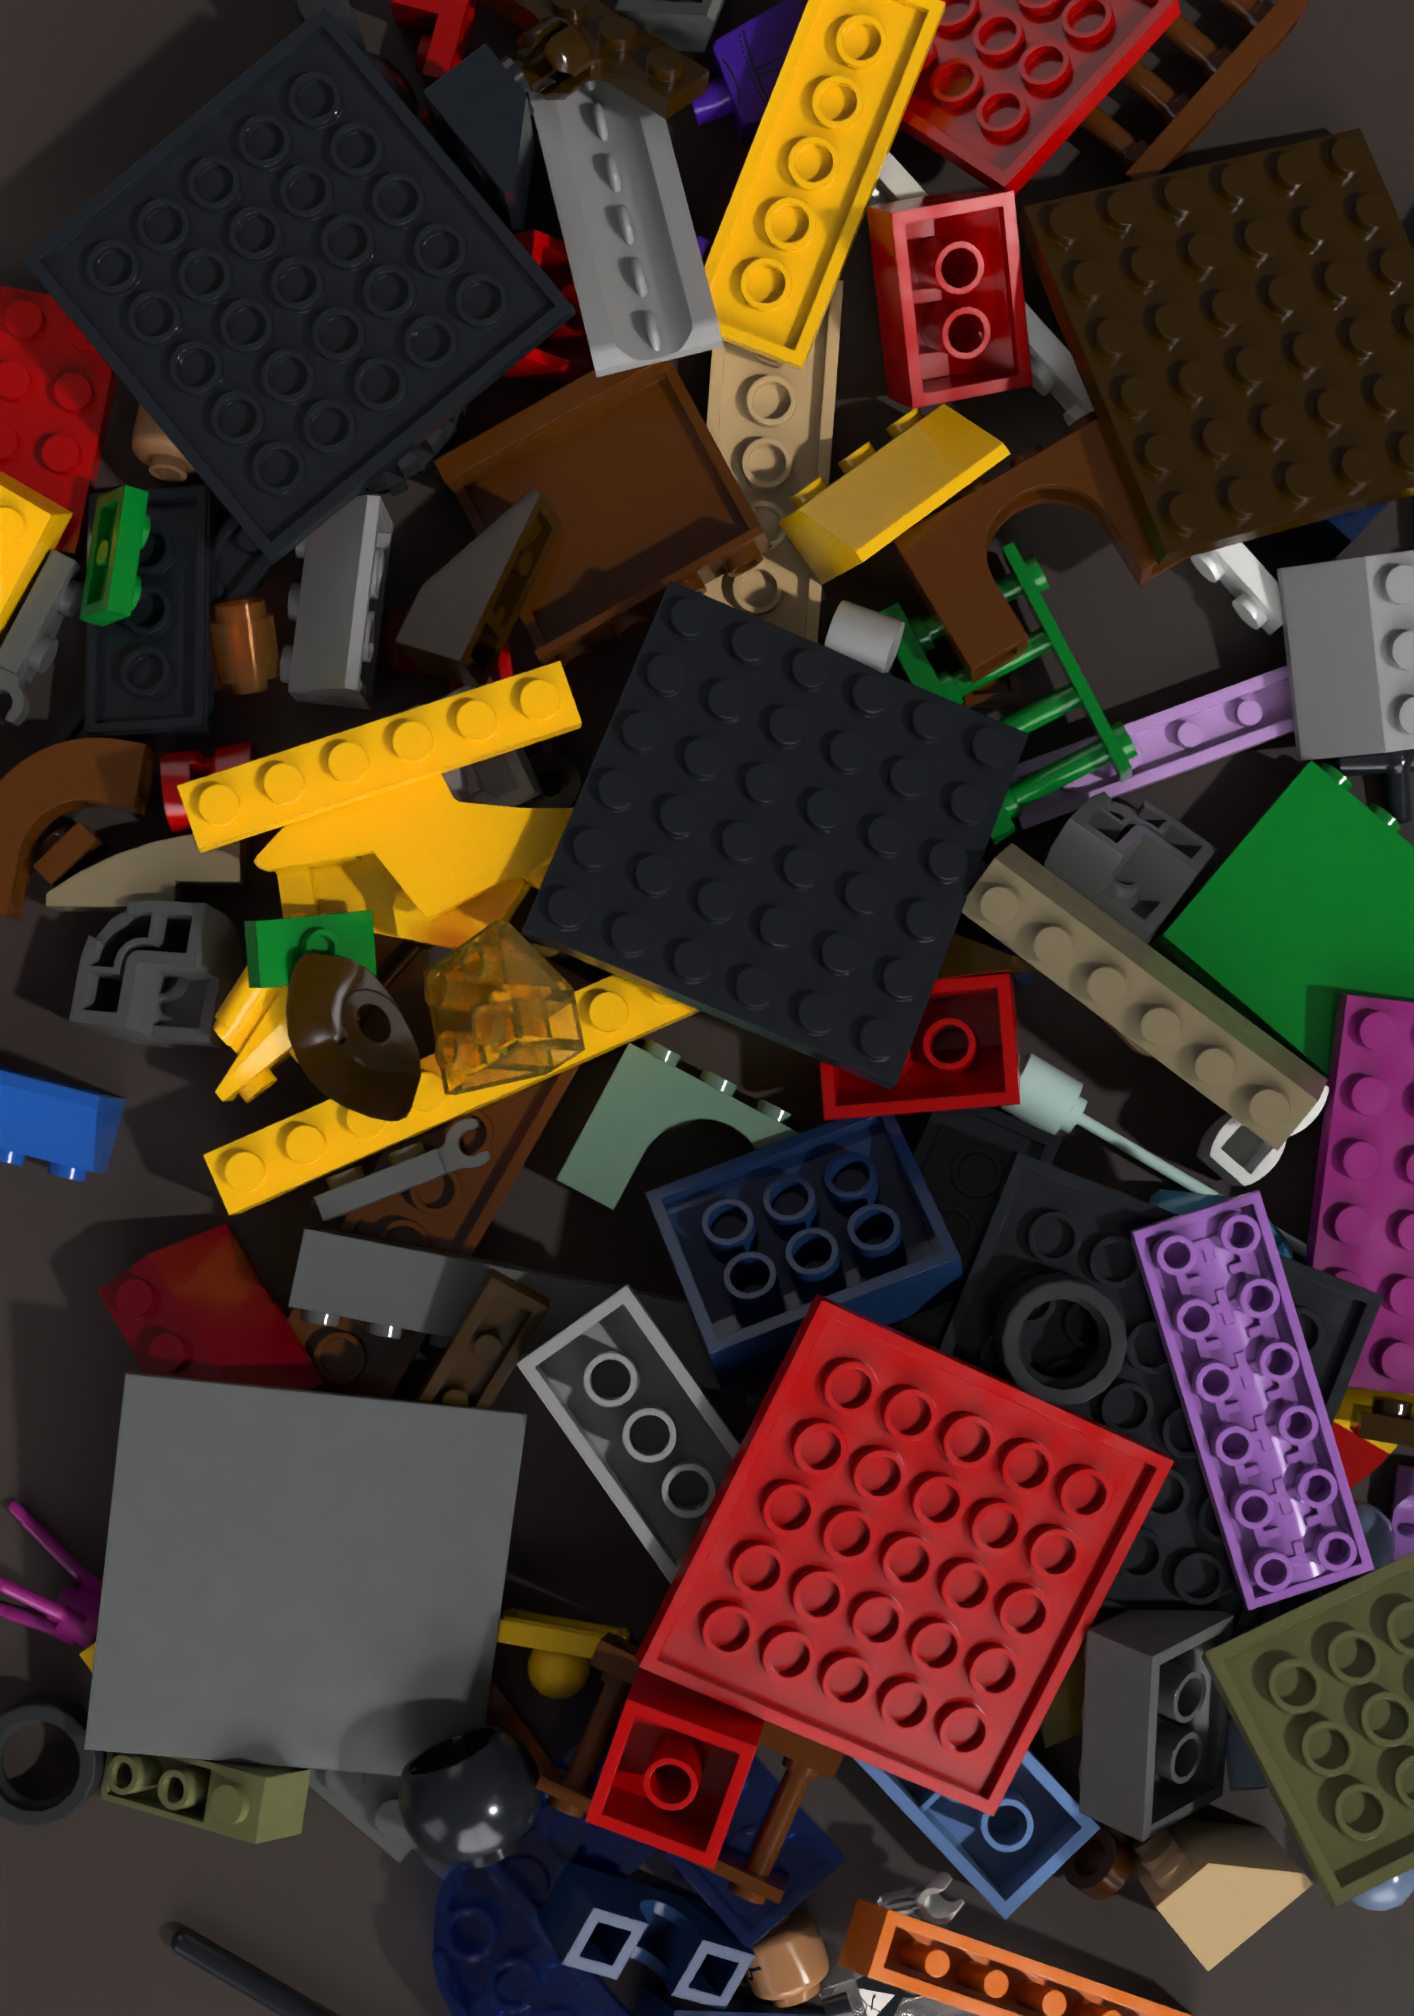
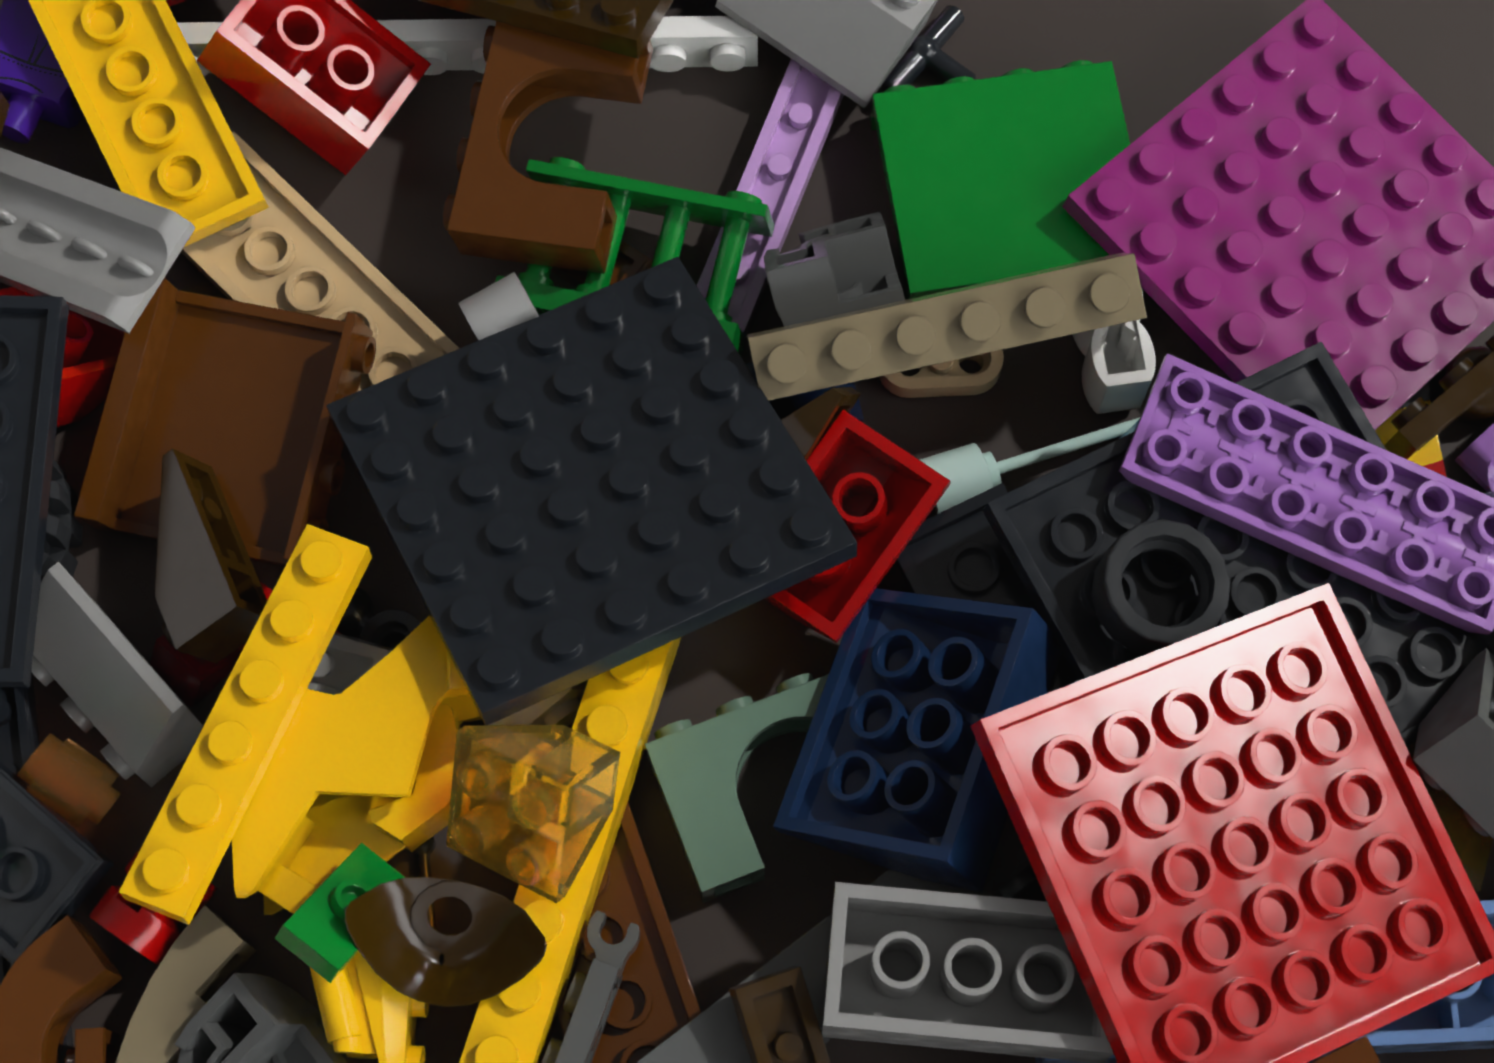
camera: 45 degrees left, 15 degrees down
(888, 489) = (408, 214): yellow slope -> none

